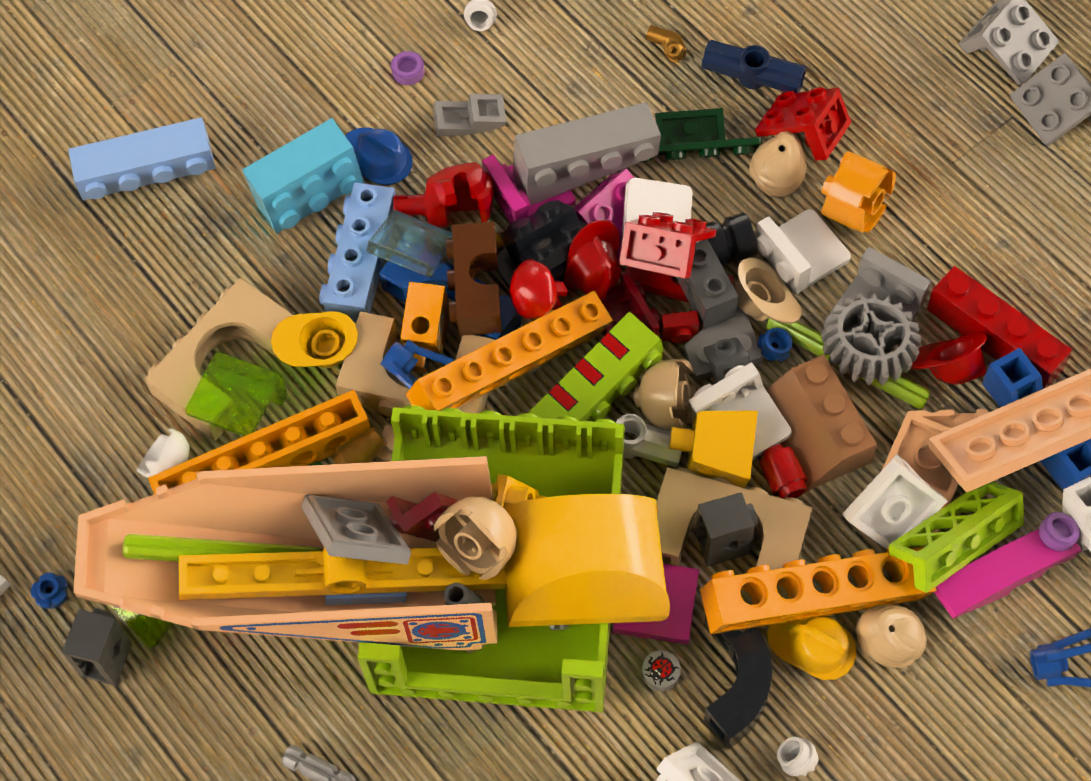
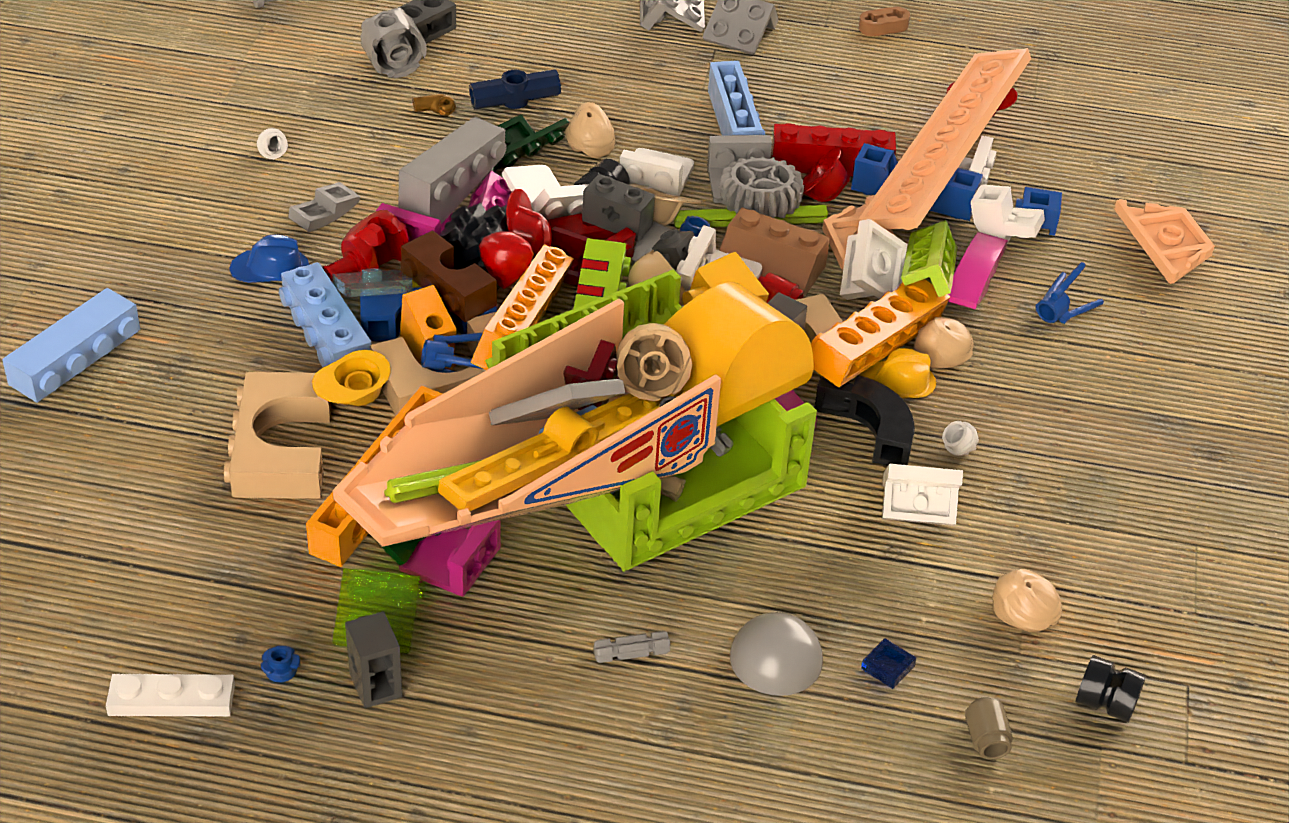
camera: 45 degrees left, 20 degrees down
(165, 454) = (289, 523): white hair -> none
(235, 394) = (319, 442): clear neon green bracket -> none
(303, 175) = (235, 286): medium azure brick -> none
(407, 68) = (242, 202): medium lavender tile -> none
(661, 671) = (821, 448): tile -> none
(662, 244) = (574, 187): bracket -> none
(815, 112) = (584, 88): red bracket -> none
(857, 192) = (665, 118): light orange brick -> none
(943, 214) = (732, 100): none -> light blue brick
(1059, 531) = (987, 232): medium lavender tile -> none

